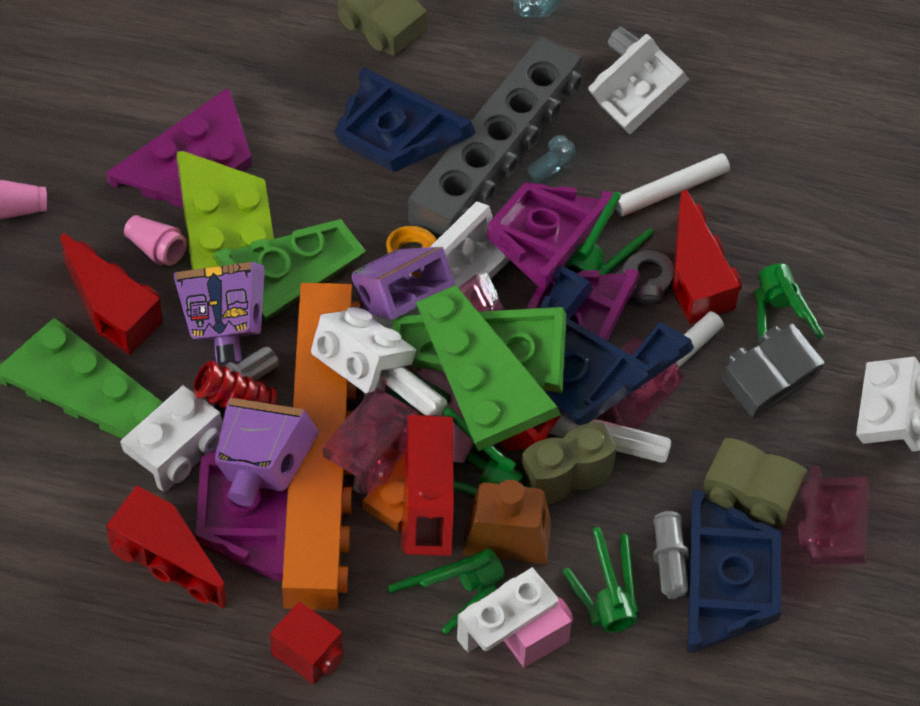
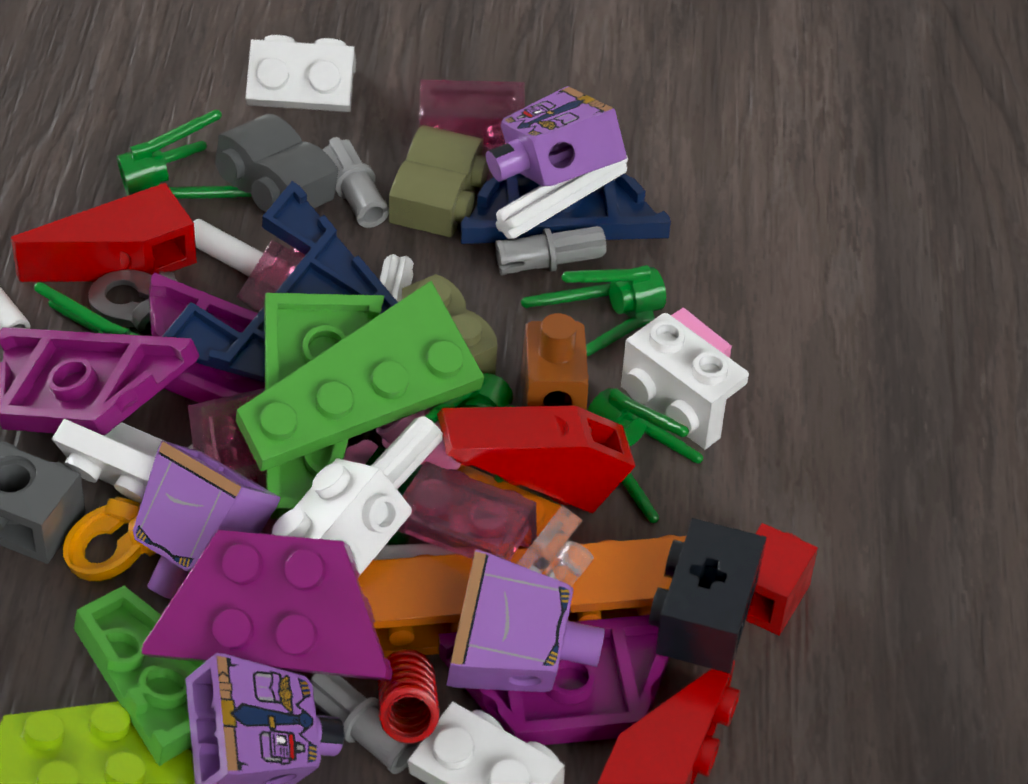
camera: 100 degrees left, 10 degrees down
(263, 566) = (708, 594): none -> black brick
(292, 306) = (275, 605): none -> magenta wing
(317, 475) = (556, 555): none -> clear tile
(720, 561) = (549, 200): none -> white axle
(761, 550) = (558, 139): none -> medium lavender torso
(765, 428) = (357, 184): none -> light grey axle

